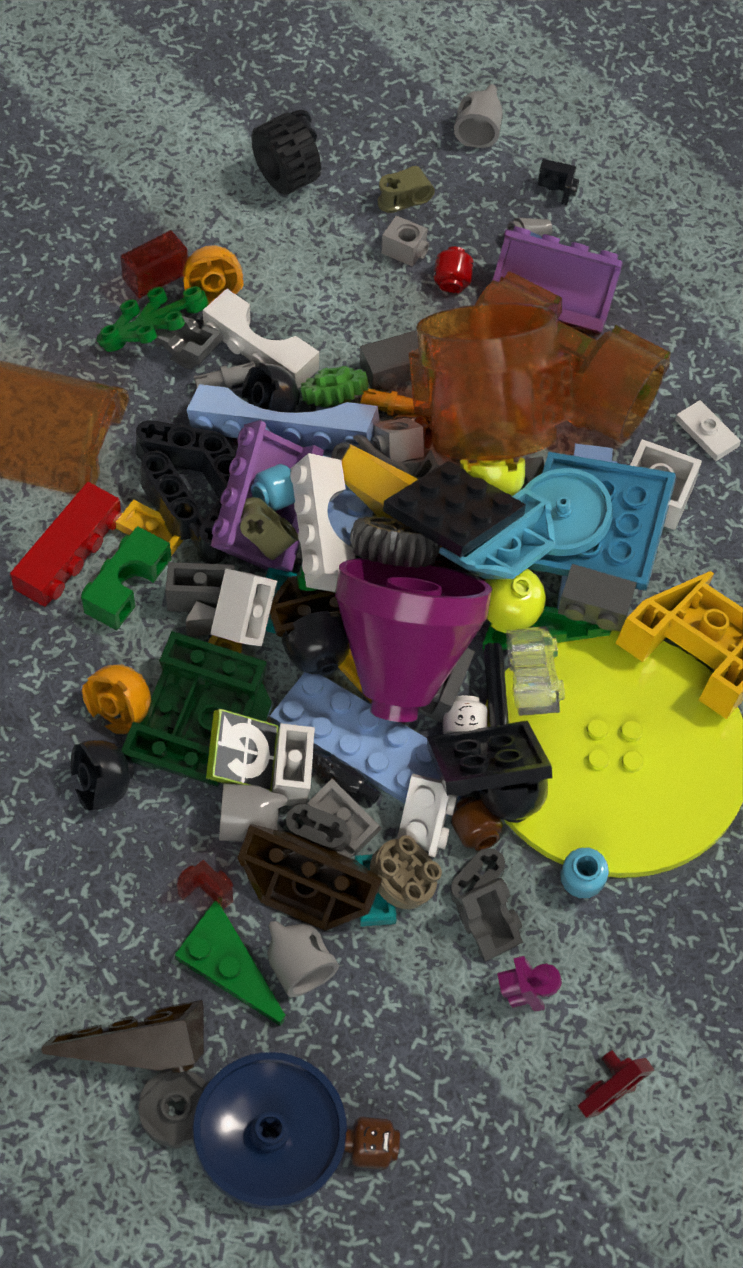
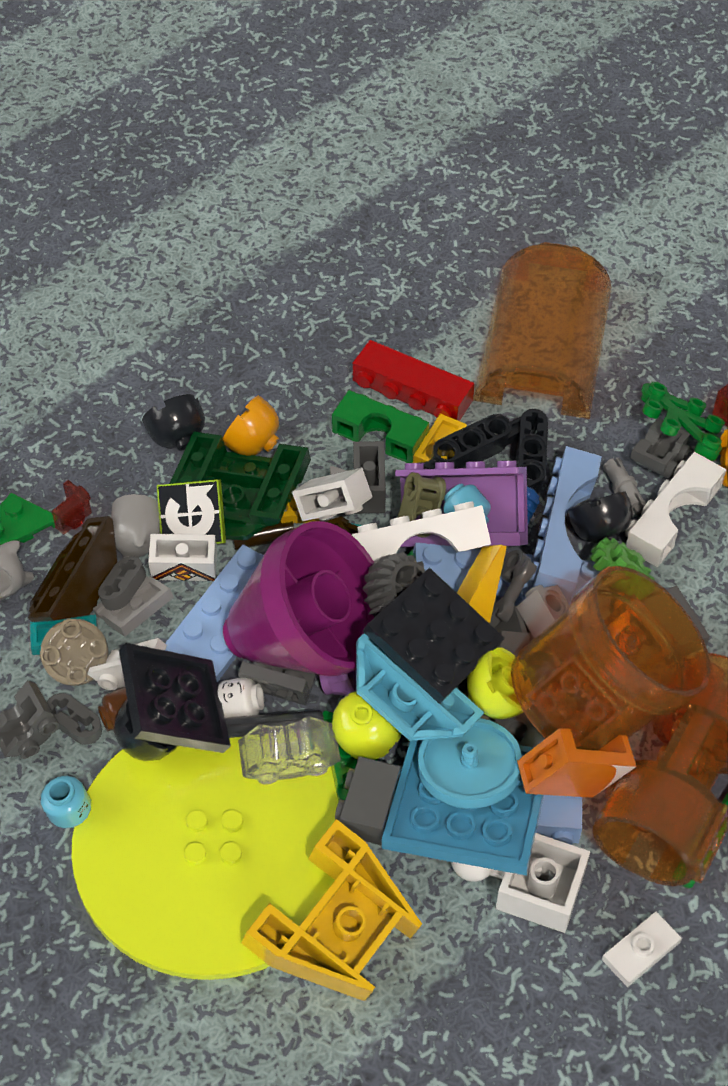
camera: 90 degrees right, 5 degrees down
(346, 776) = (179, 606): black piece -> none
(586, 427) = (562, 770): none -> orange panel

